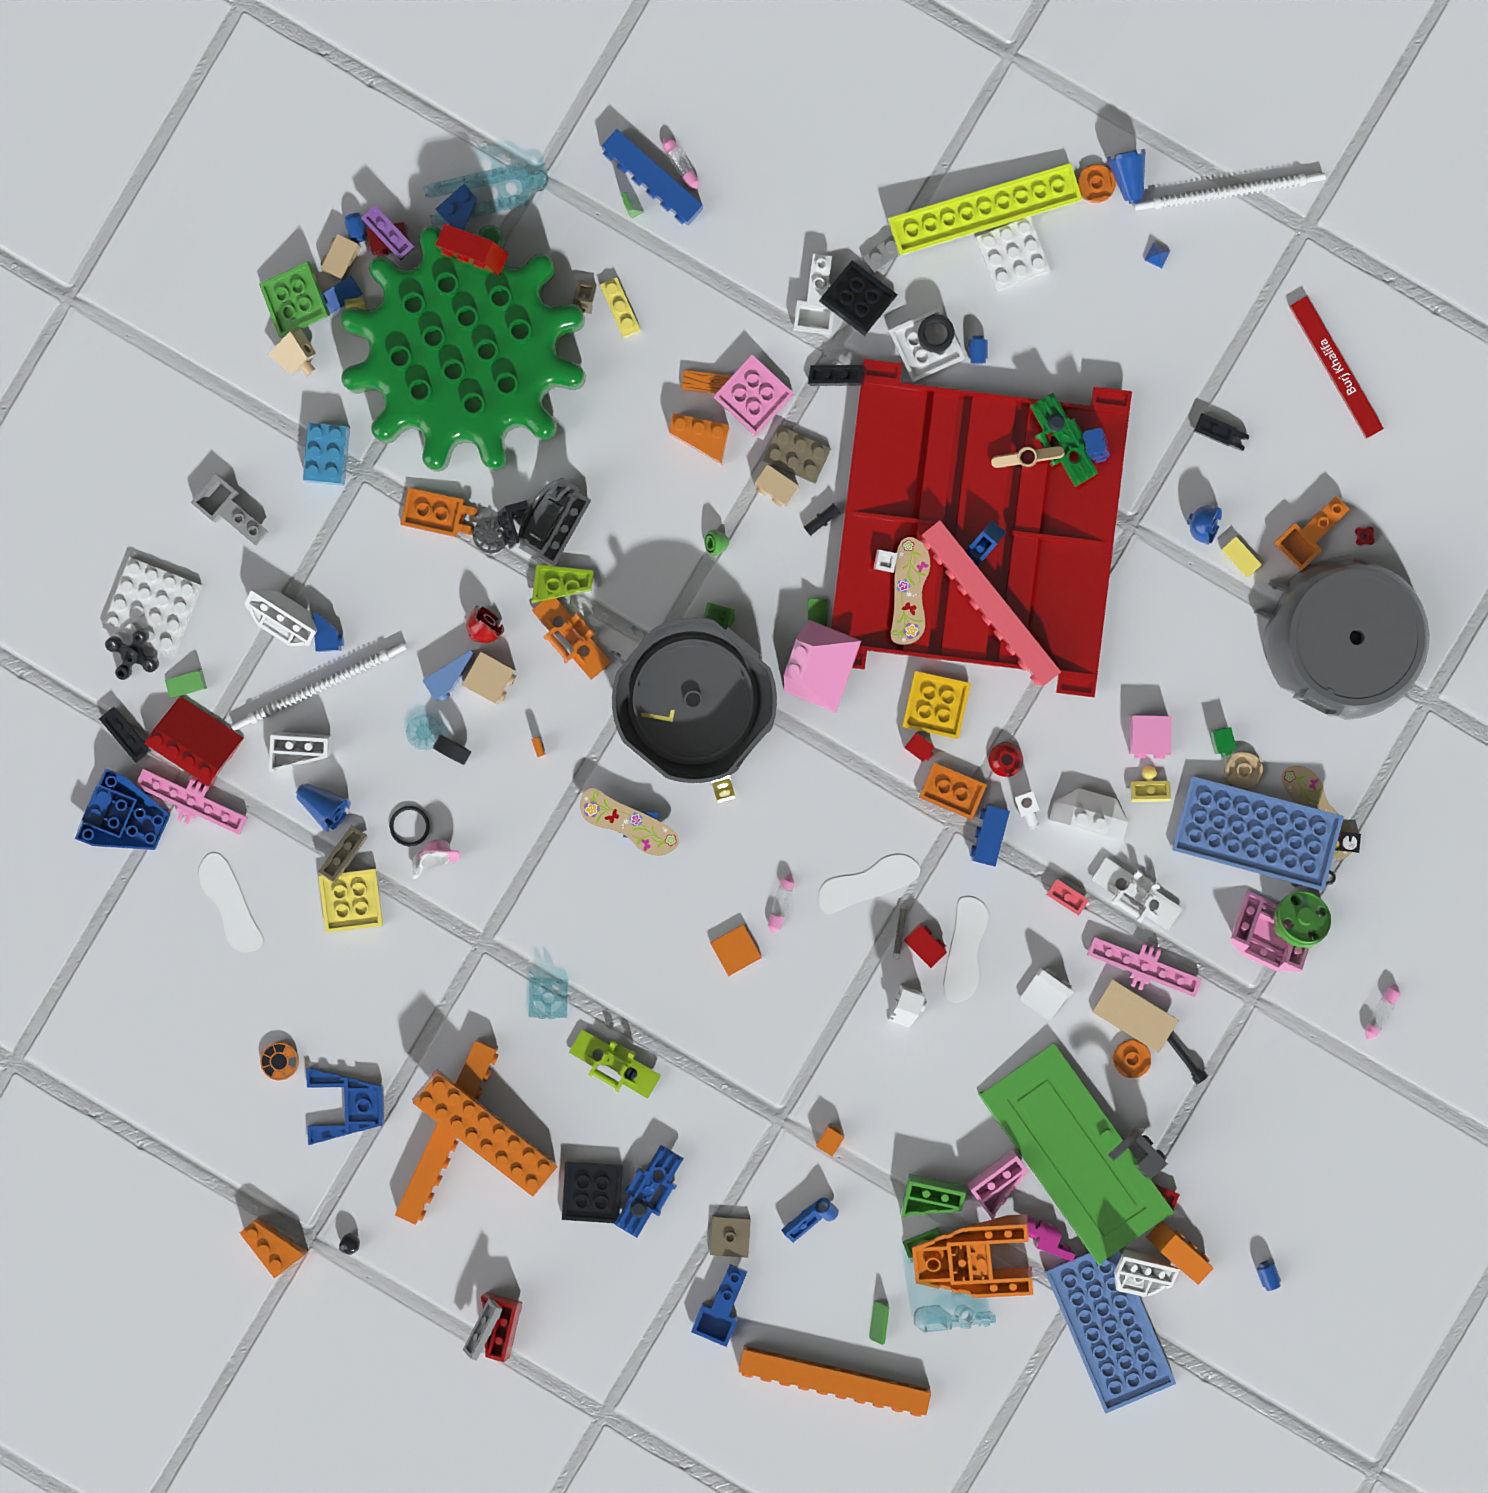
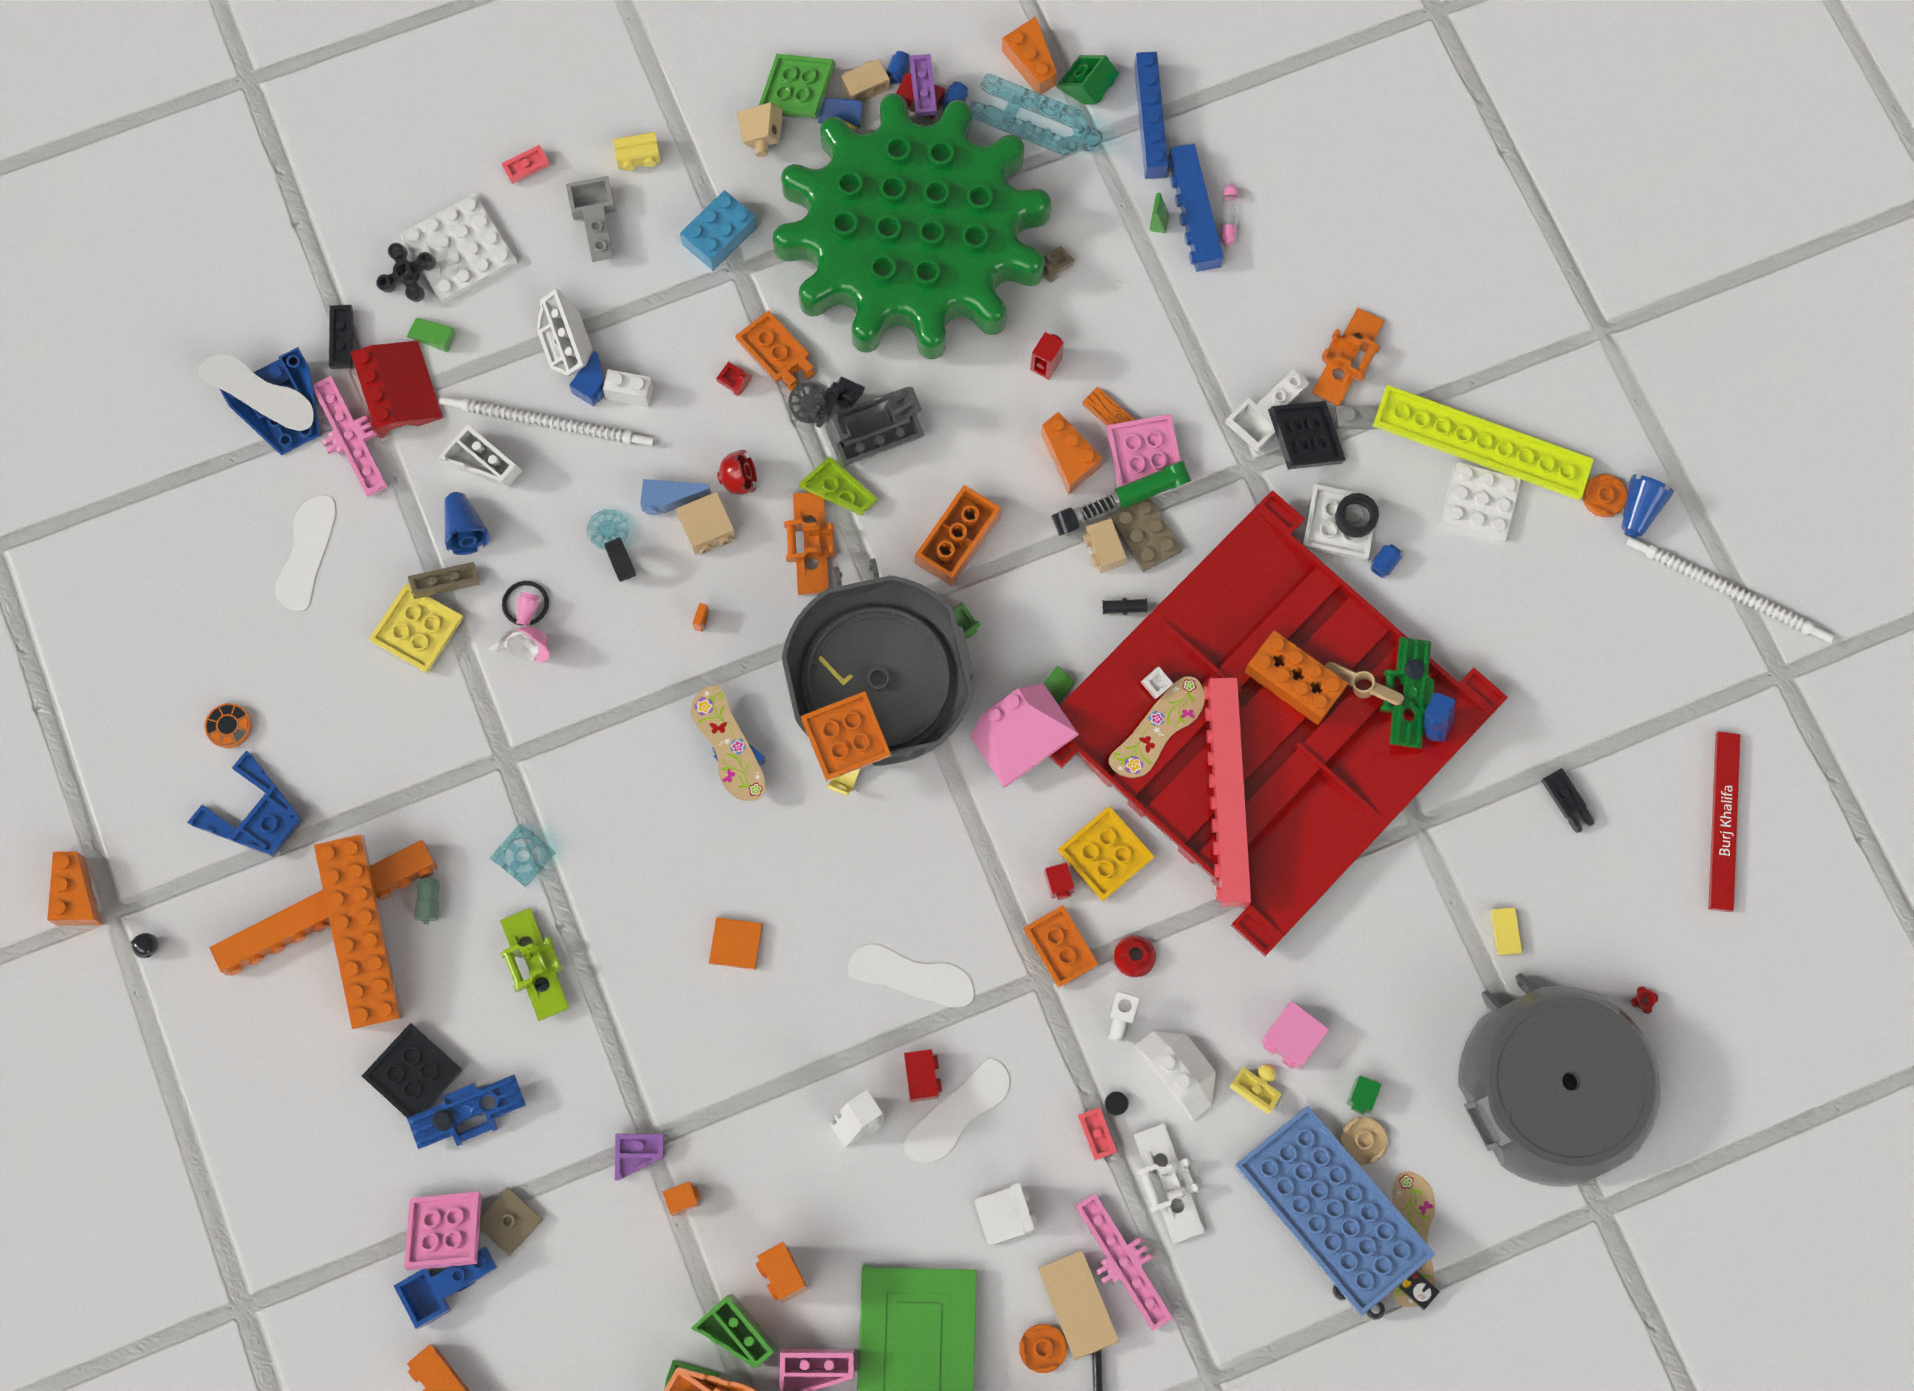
camera: 35 degrees right, 15 degrees down
(124, 818) = (274, 401): none -> white sticker
(147, 507) = (525, 164): none -> coral plate
(219, 437) = (637, 151): none -> light yellow brick
(357, 620) = (628, 388): none -> white brick
(414, 221) = (956, 91): none -> blue brick
(415, 831) = (526, 608): none -> bright pink cone
(424, 556) = (734, 378): none -> red tile
(444, 145) = (1030, 56): none -> orange wedge
(458, 207) = (1001, 110): blue wing -> none
(471, 249) = (987, 140): red wedge -> none
(482, 1329) = (196, 1120): light grey plate -> none
(500, 132) = (1088, 78): none -> green slope
(502, 1337) = (217, 1135): red wedge -> none
(512, 1078) = (427, 900): none -> sand green piece
(567, 127) = (1151, 115): none -> blue brick
(620, 307) = (1080, 295): light yellow plate -> none
(632, 375) = (1047, 355): none -> red brick
(678, 546) = (954, 522): none -> orange brick
(695, 1275) = (443, 1231): none -> bright pink plate
(708, 764) = (845, 736): none -> orange plate
(716, 542) = (1010, 555): bright green cone -> none
(778, 1132) = (636, 1151): none -> medium lavender wing
(781, 903) = (813, 931): piece -> none
(787, 402) = (1123, 497): none -> piece
(809, 1217) = (600, 1262): blue plate -> none
(836, 375) = (1235, 487): black plate -> none
(838, 215) = (1342, 354): none -> orange piece
(898, 931) = (909, 1047): olive piece -> none
(934, 1141) = (782, 1273): none -> orange brick
(969, 496) = (1296, 692): none -> orange brick
(985, 542) = (1265, 732): blue slope -> none
(989, 835) = (1065, 1015): blue brick -> none
(1065, 867) = (1116, 1103): none -> black plate
(1157, 255) = (1618, 598): blue slope -> none
(1204, 523) = (1492, 871): blue cylinder -> none
(1257, 939) = (1277, 1325): bright pink slope -> none
(1300, 544) = (1574, 959): orange plate -> none
(1302, 919) = (1319, 1332): bright green piece -> none

